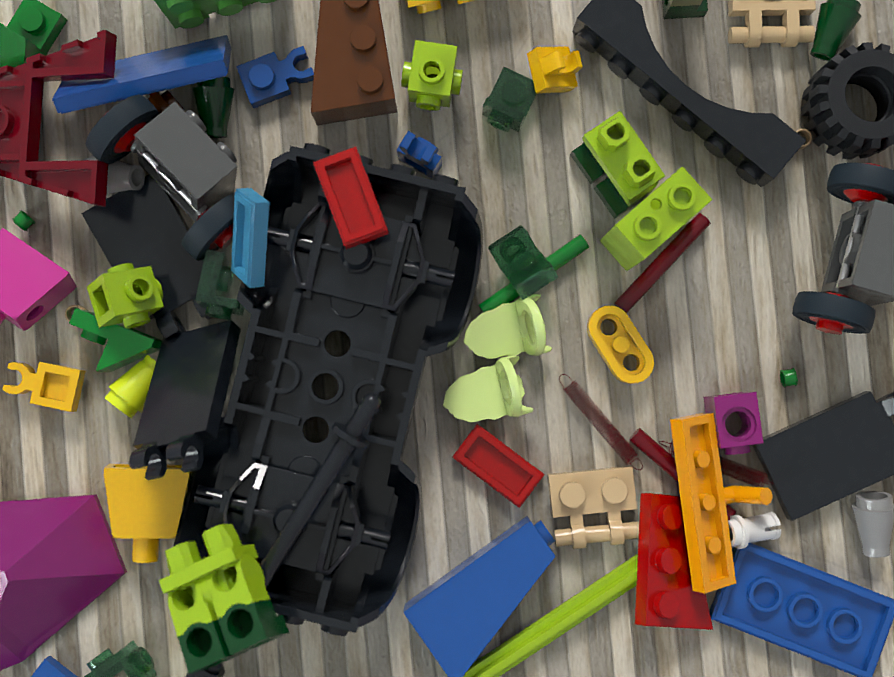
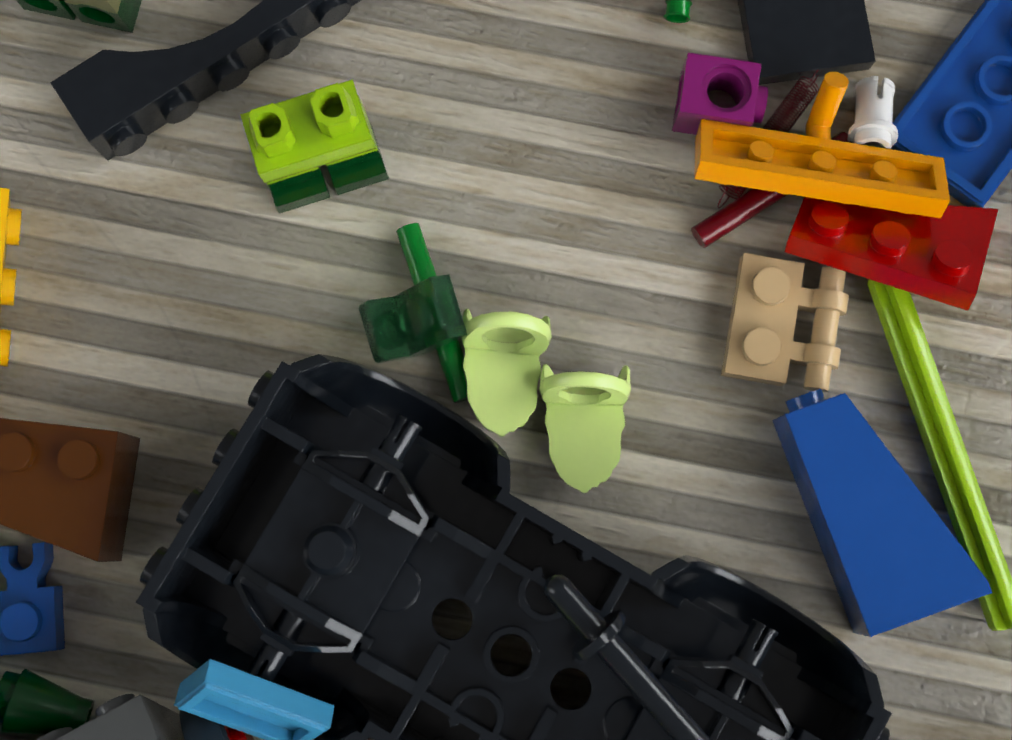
camera: 75 degrees left, 5 degrees down
(351, 197) = (242, 532): red tile -> none
(419, 154) = (211, 420): blue plate -> none
(432, 75) = (103, 369): lime brick -> none
(498, 465) = (690, 440): red tile -> none
(509, 101) = (176, 272): clear green bracket -> none
(554, 69) = (151, 197): yellow tile -> none
(616, 438) = (605, 299): dark red piece -> none
(623, 342) = (566, 218): yellow plate -> none
(655, 219) = (409, 115): lime window -> none
(662, 262) = (471, 132): dark red bar -> none

